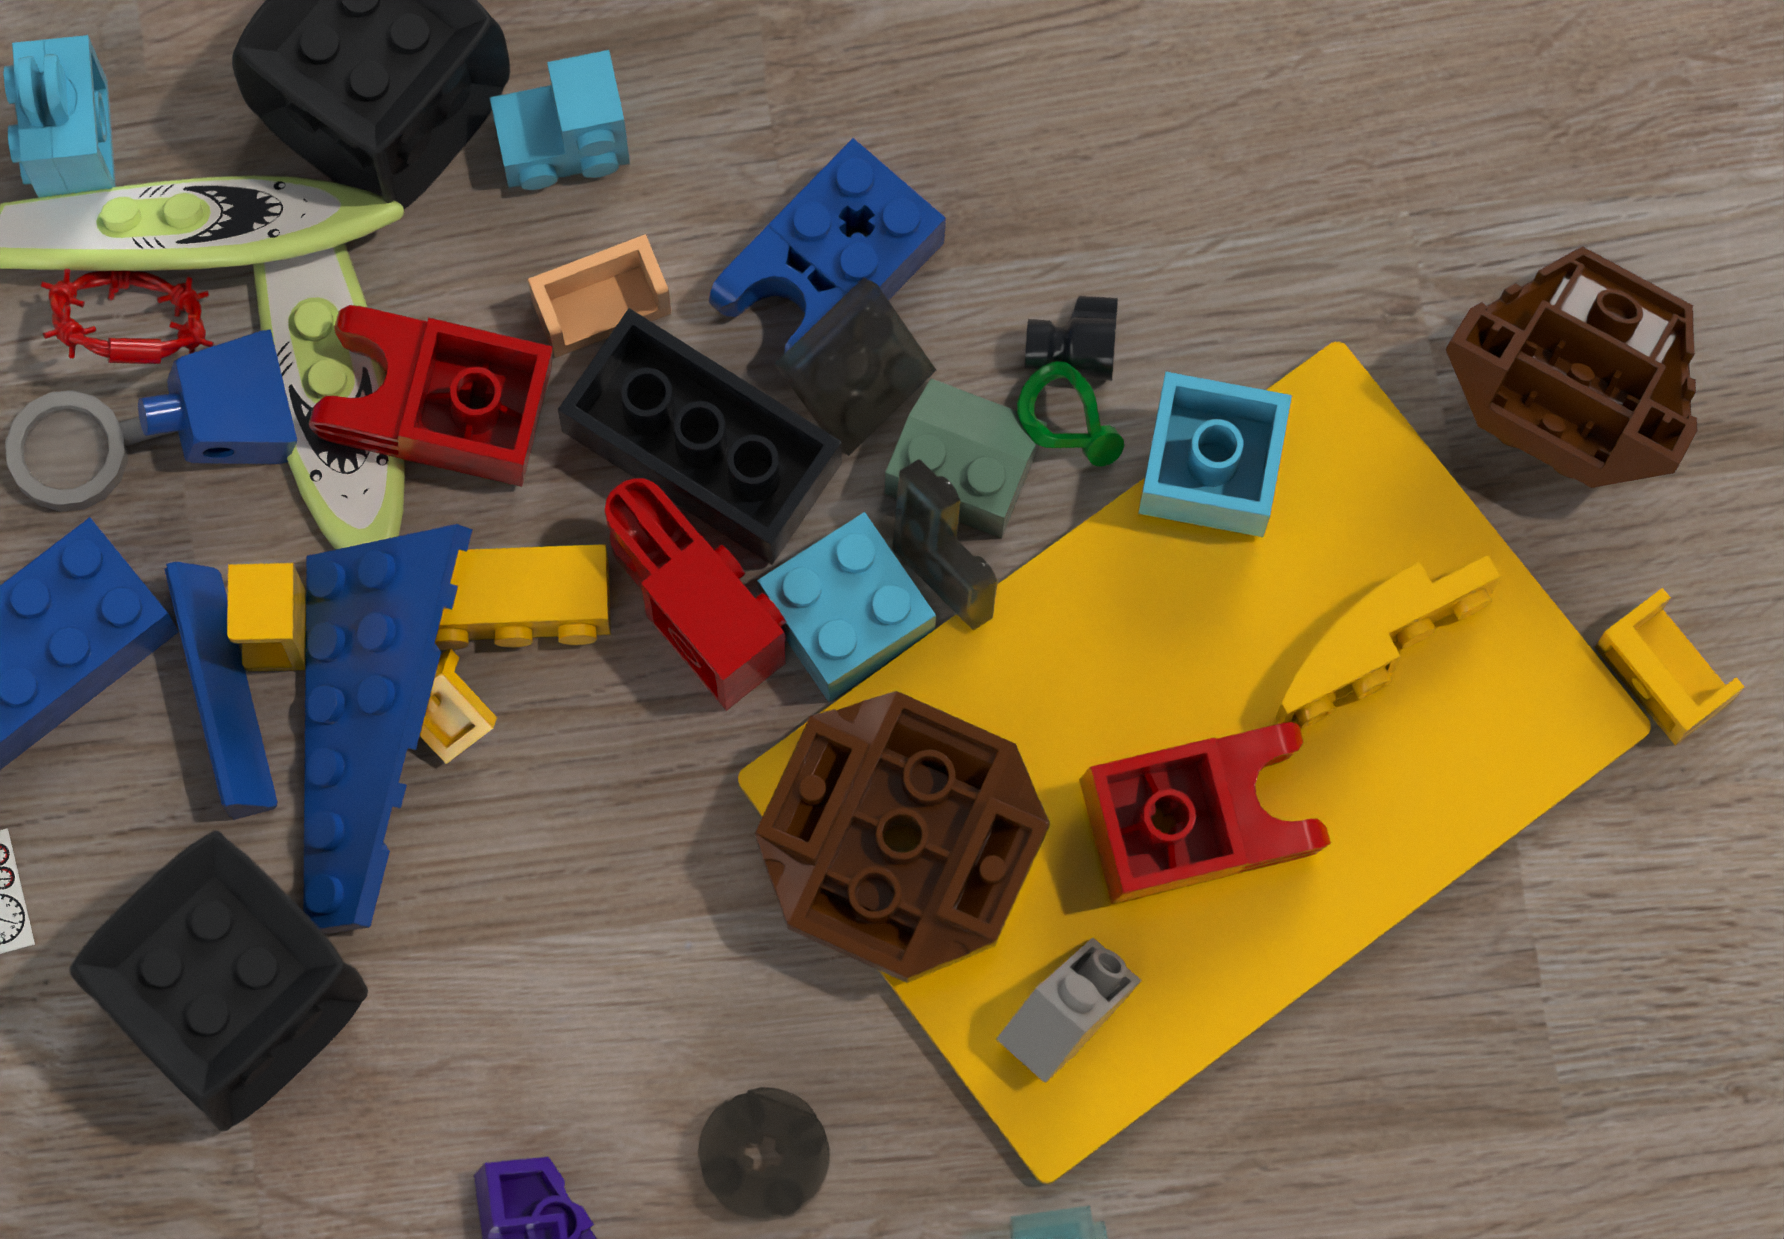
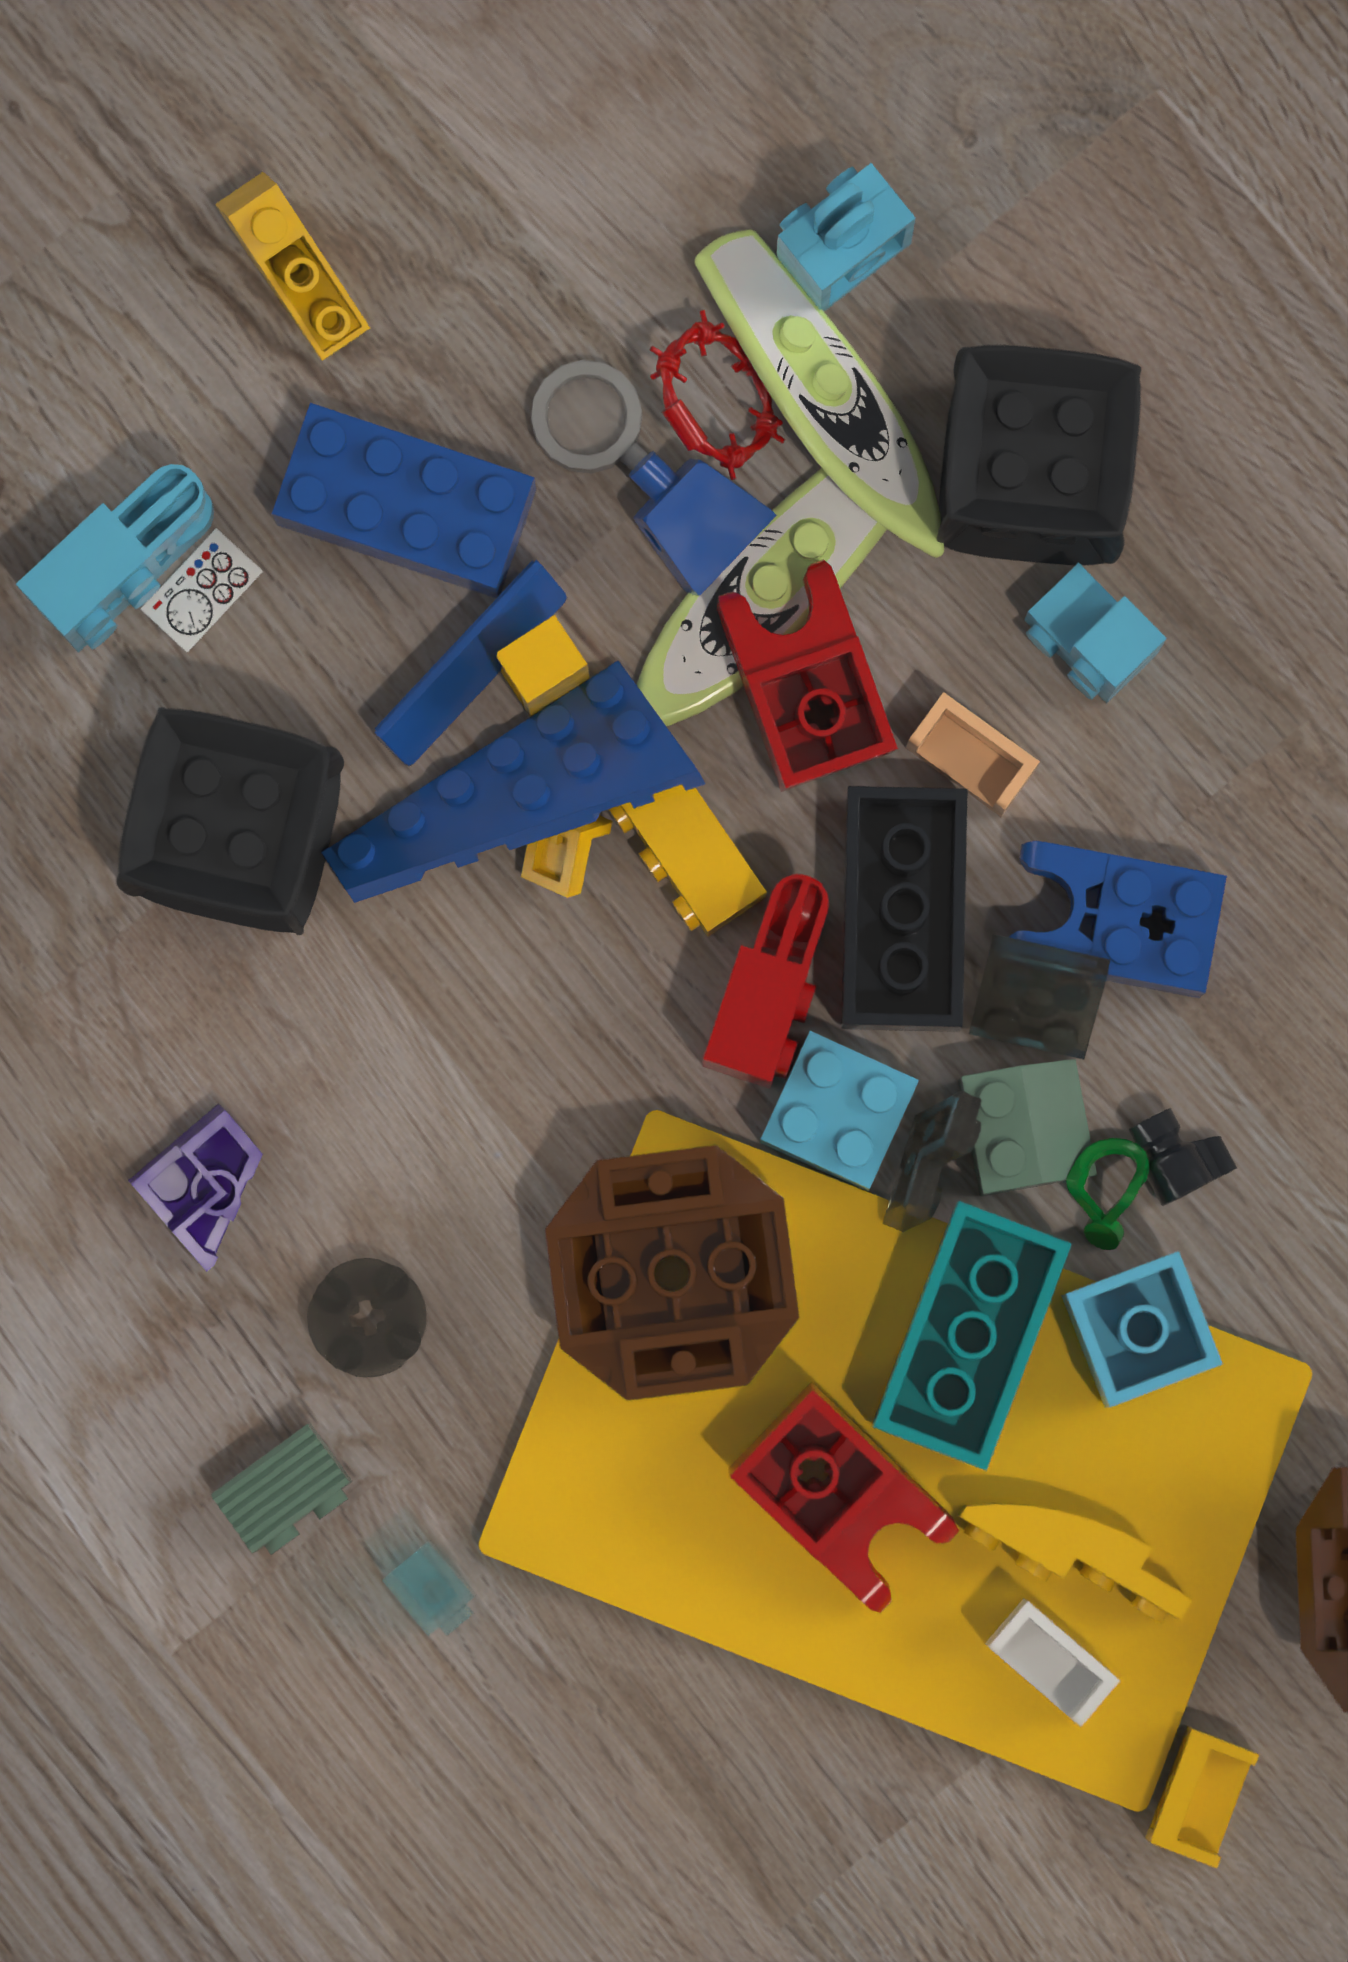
camera: 65 degrees right, 10 degrees up
(1068, 1009) = (621, 1486): light grey slope -> none
(1127, 606) = (971, 1335): none -> teal brick
(1469, 717) = (1052, 1662): none -> white panel

